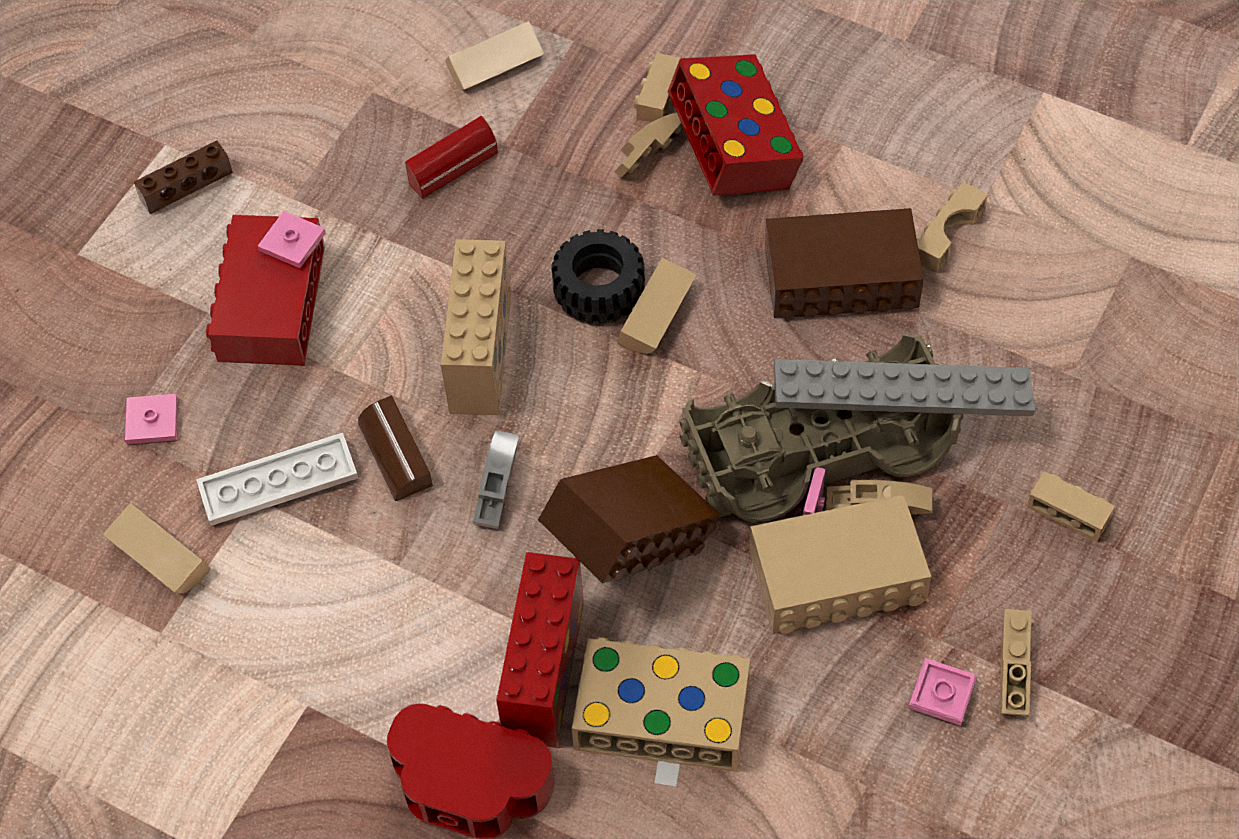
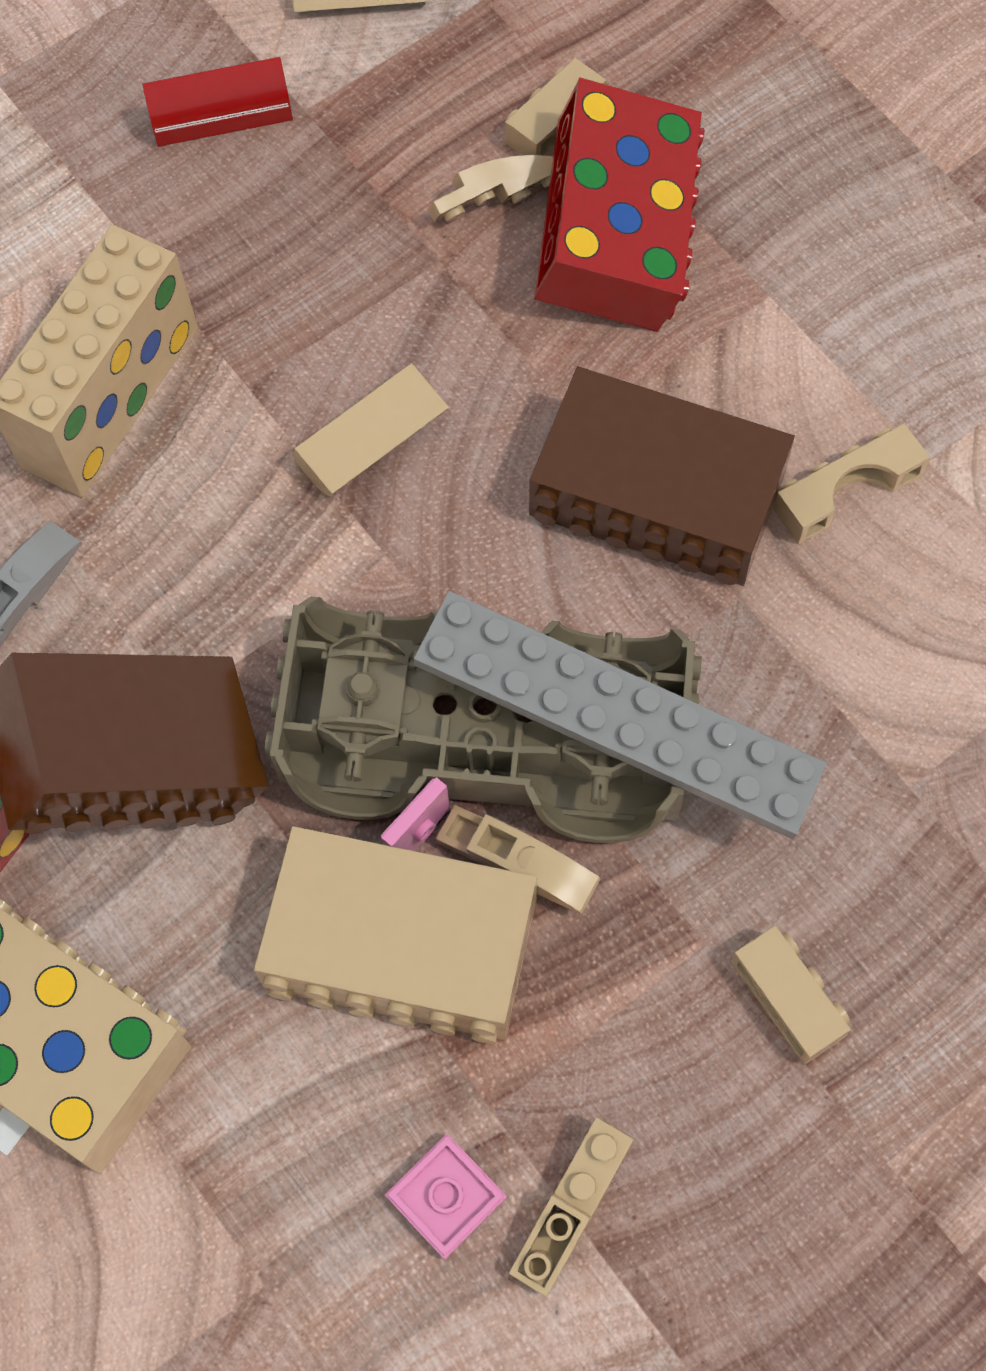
camera: 25 degrees right, 10 degrees up
(598, 251) = (302, 315): black tyre -> none

